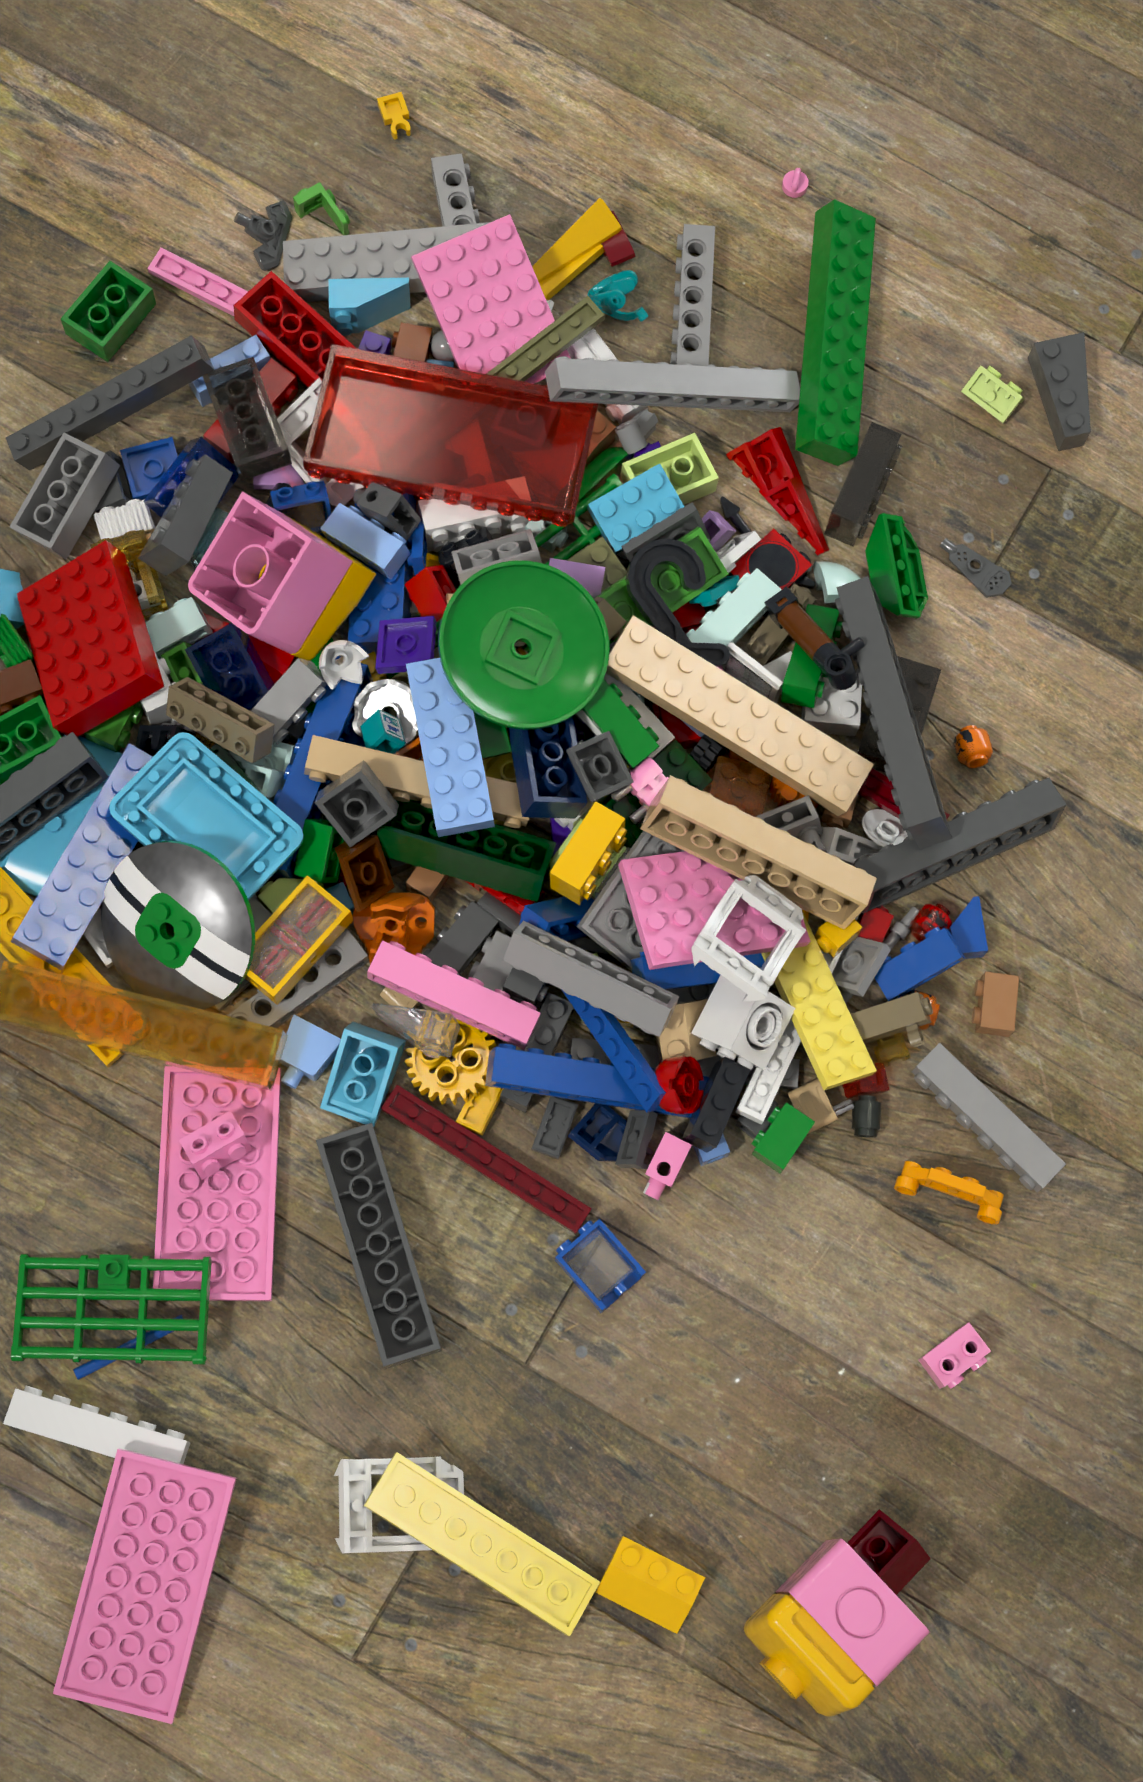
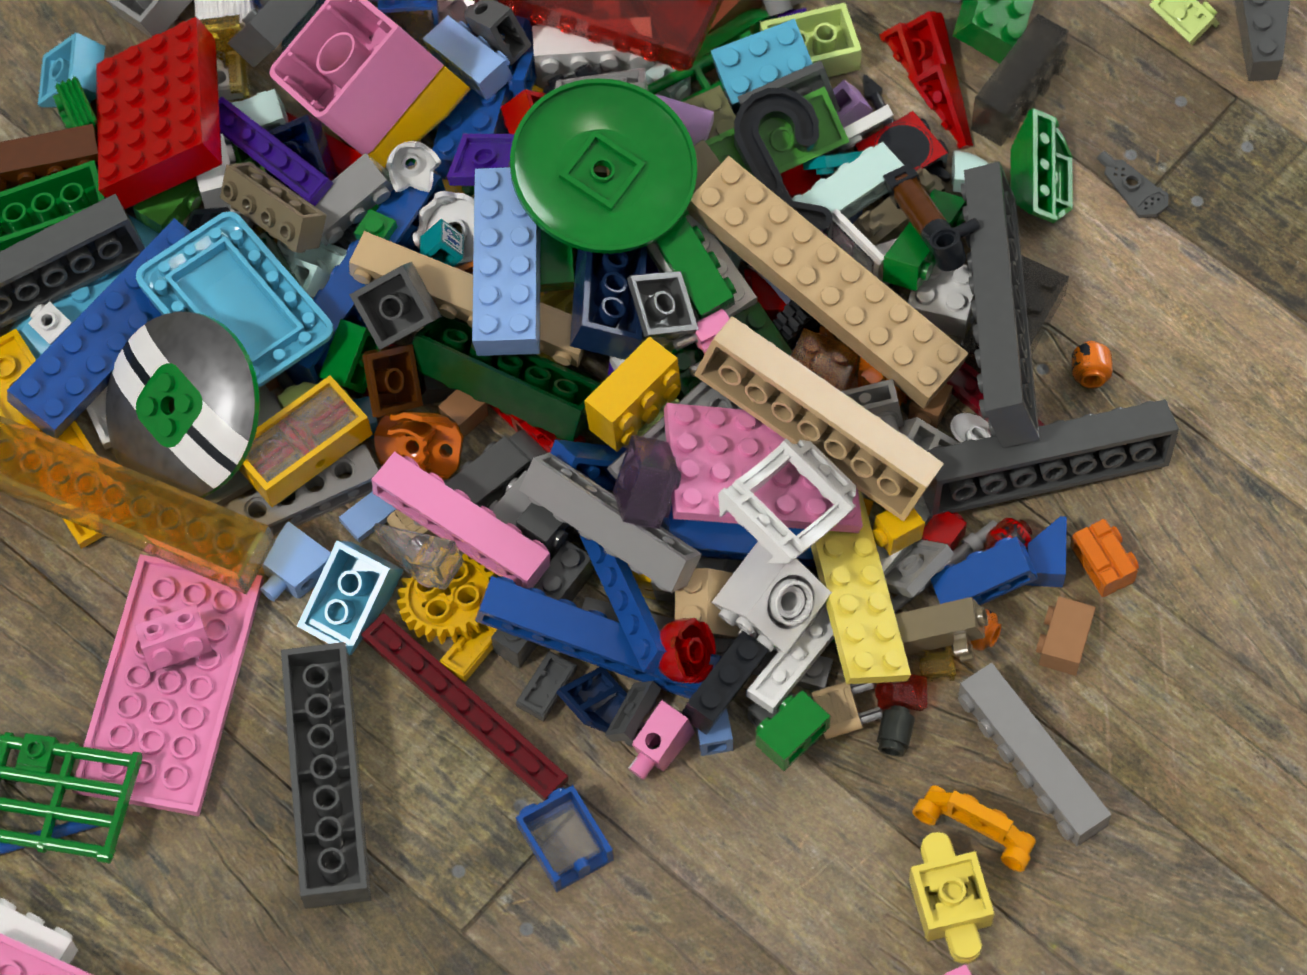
camera: 20 degrees right, 10 degrees down
(44, 862) = (48, 322): none -> white brick
(207, 666) = (272, 153): none -> dark purple tile
(318, 724) = (377, 225): none -> green plate
(360, 993) = (364, 514): none -> light blue tile
(620, 940) = (646, 482): none -> clear purple brick
(943, 1261) = (951, 897): none -> light yellow brick
(1016, 925) = (1104, 557): none -> orange brick

